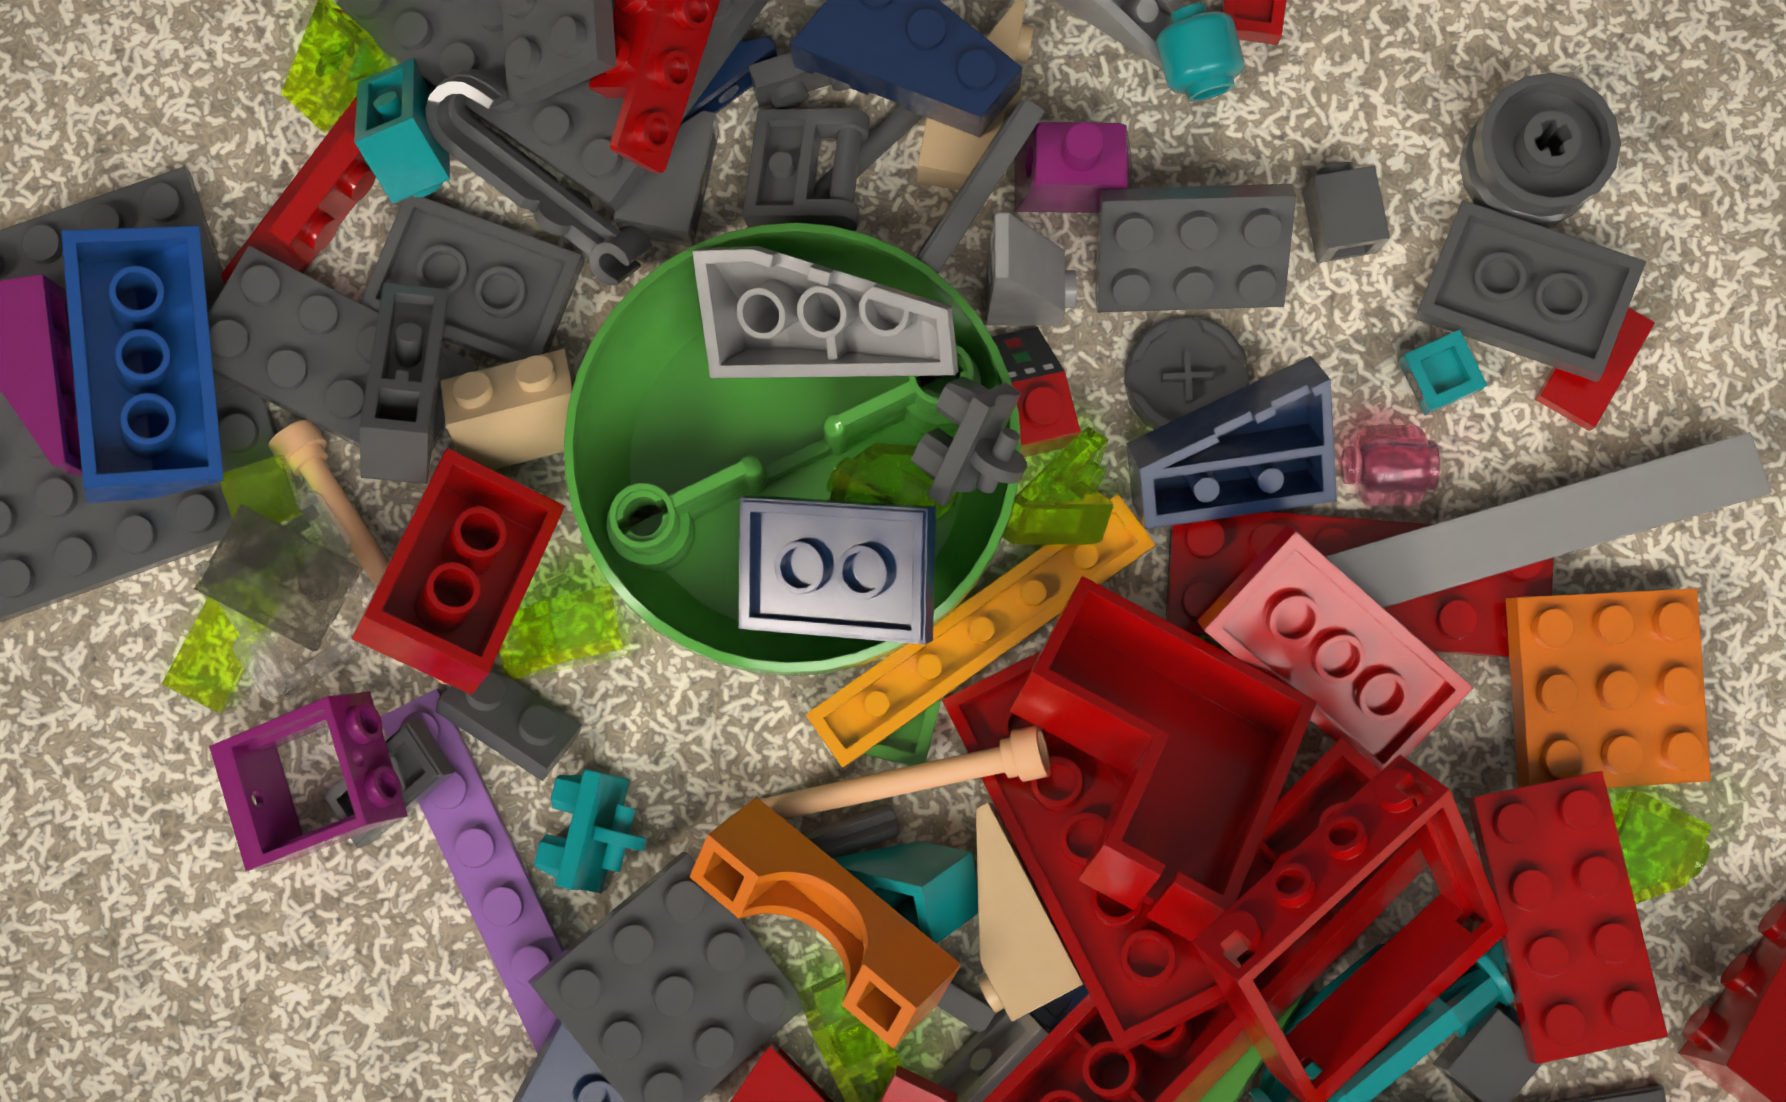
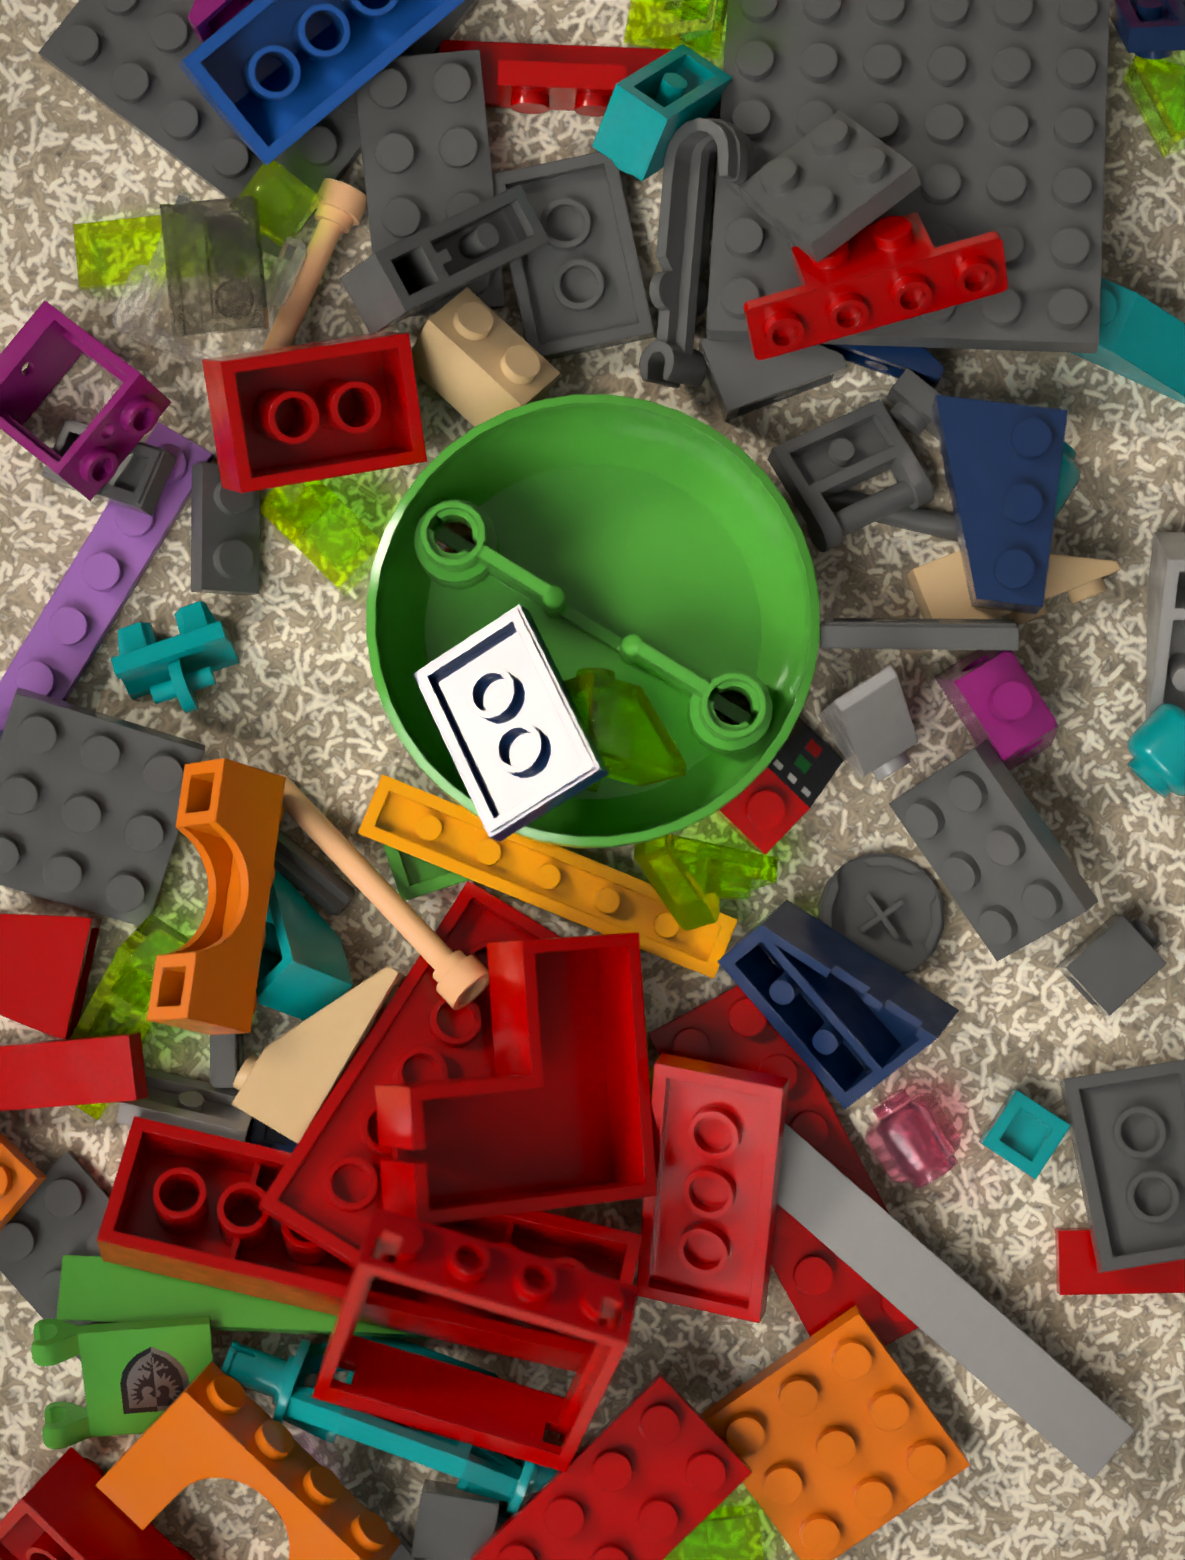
camera: 60 degrees right, 5 degrees up
(804, 320) = (703, 561): light grey wedge -> none
(982, 446) = (683, 779): dark grey hips -> none

